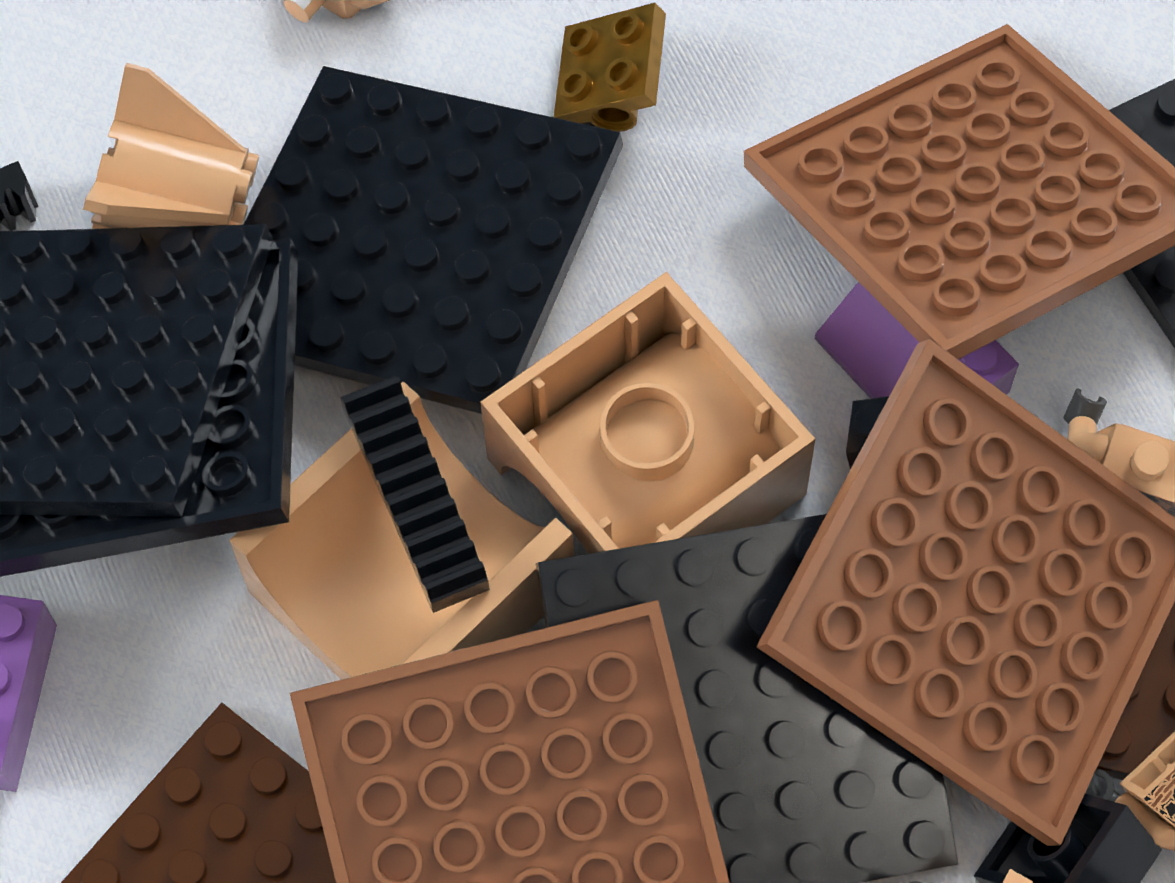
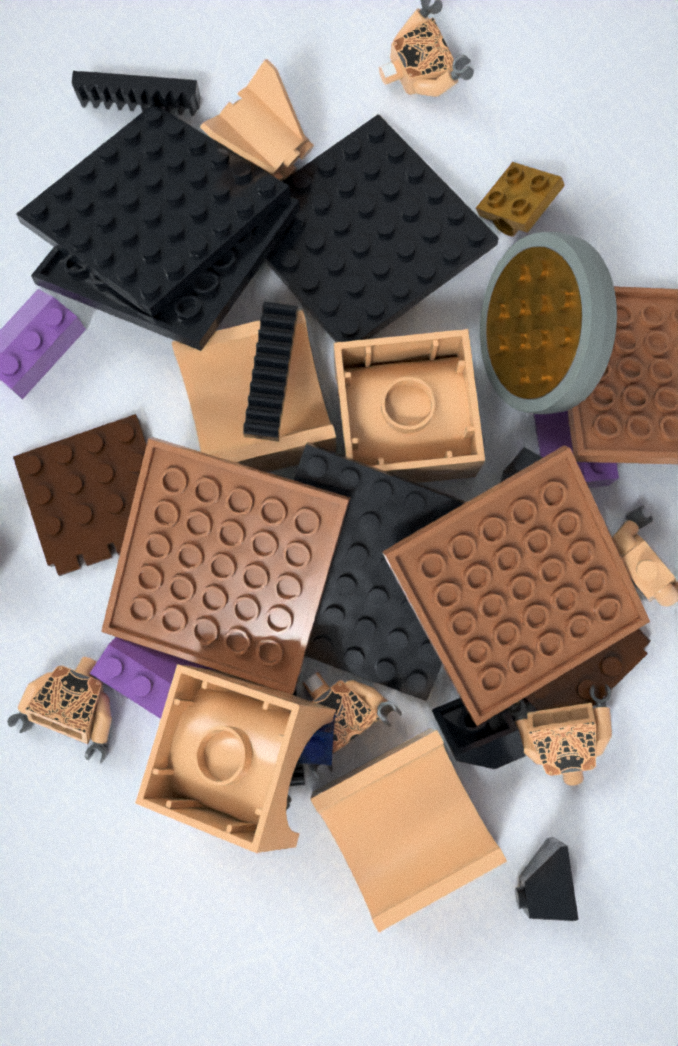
camera: 30 degrees right, 15 degrees up
(775, 202) = (548, 323): none -> wheel

